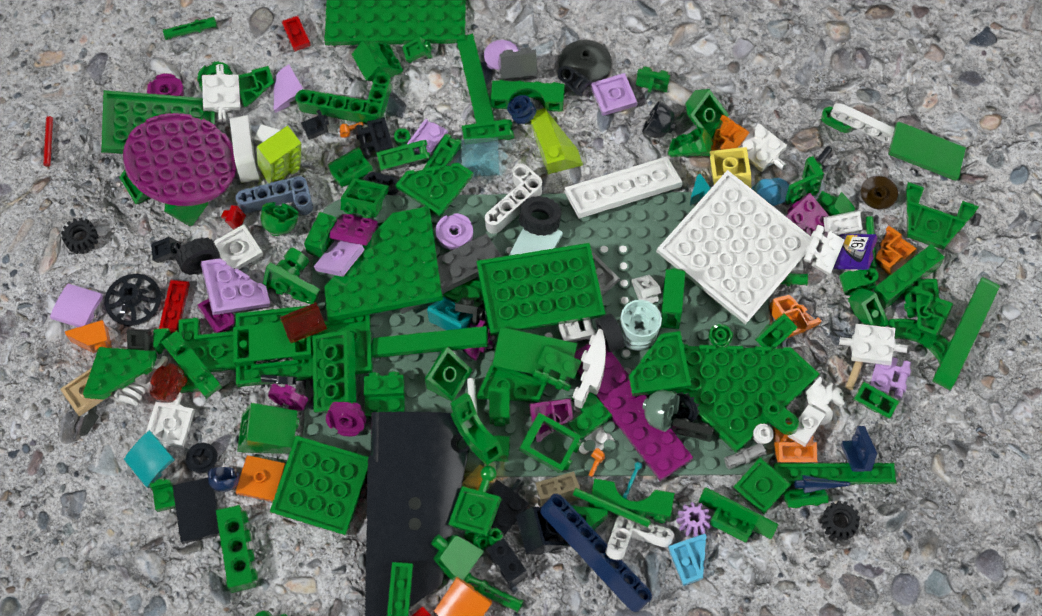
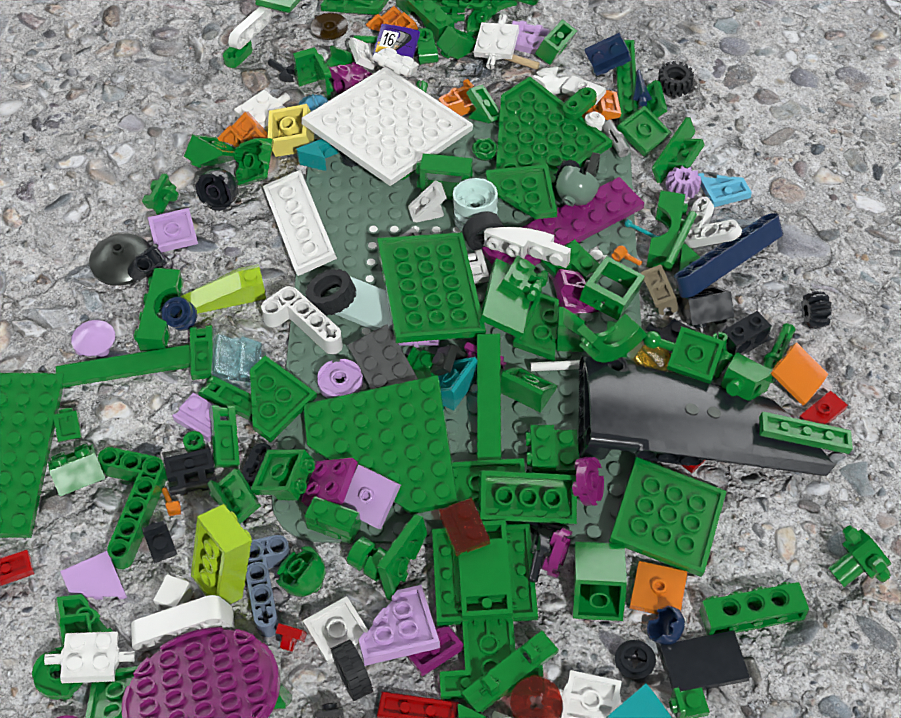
camera: 90 degrees left, 10 degrees down
(518, 64) = (119, 311): dark grey slope -> none

